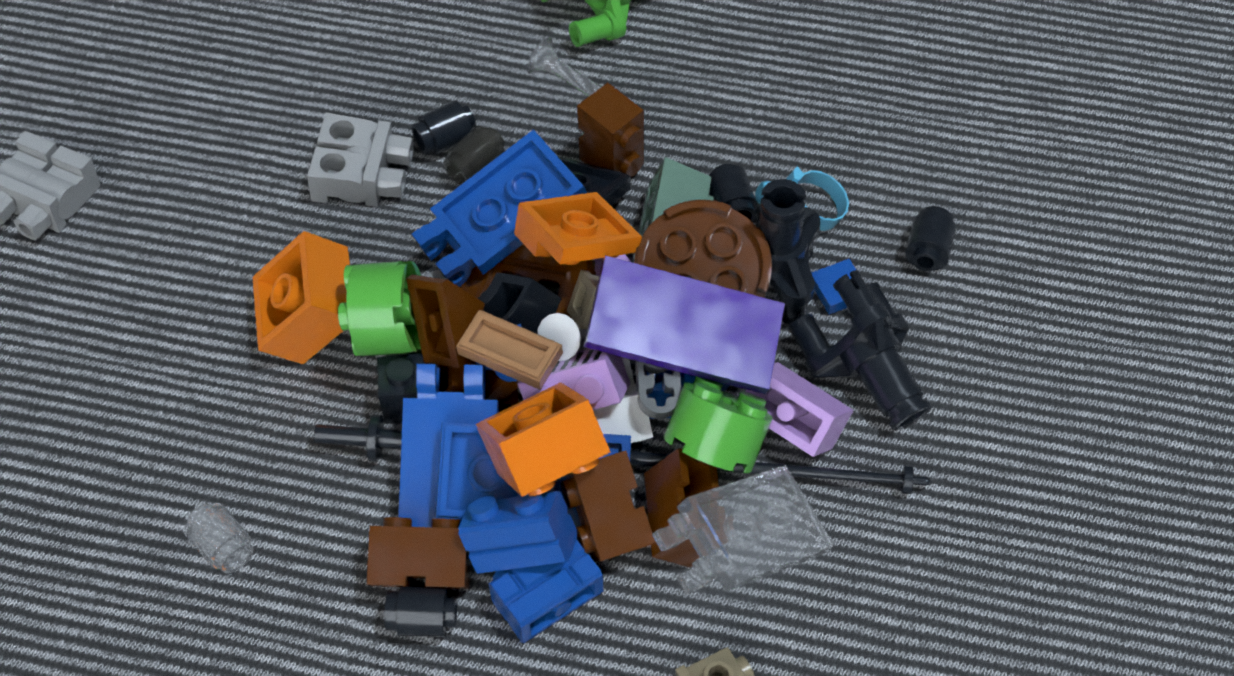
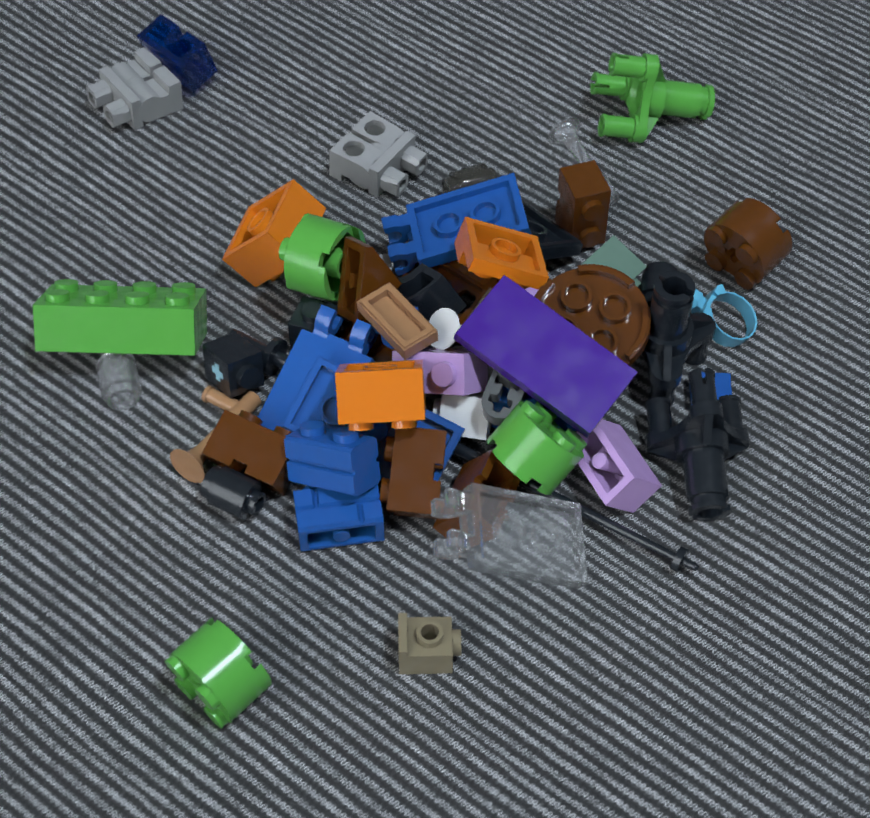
camera: 25 degrees right, 5 degrees down
(77, 126) = (182, 54): none -> clear blue brick
(187, 468) = (120, 318): none -> bright green brick
(339, 466) = (233, 364): none -> black brick
(355, 598) = (190, 463): none -> medium nougat piece
(443, 127) = (456, 154): black brick -> none
(795, 110) = (747, 242): none -> reddish brown brick
(931, 239) = (809, 384): black brick -> none

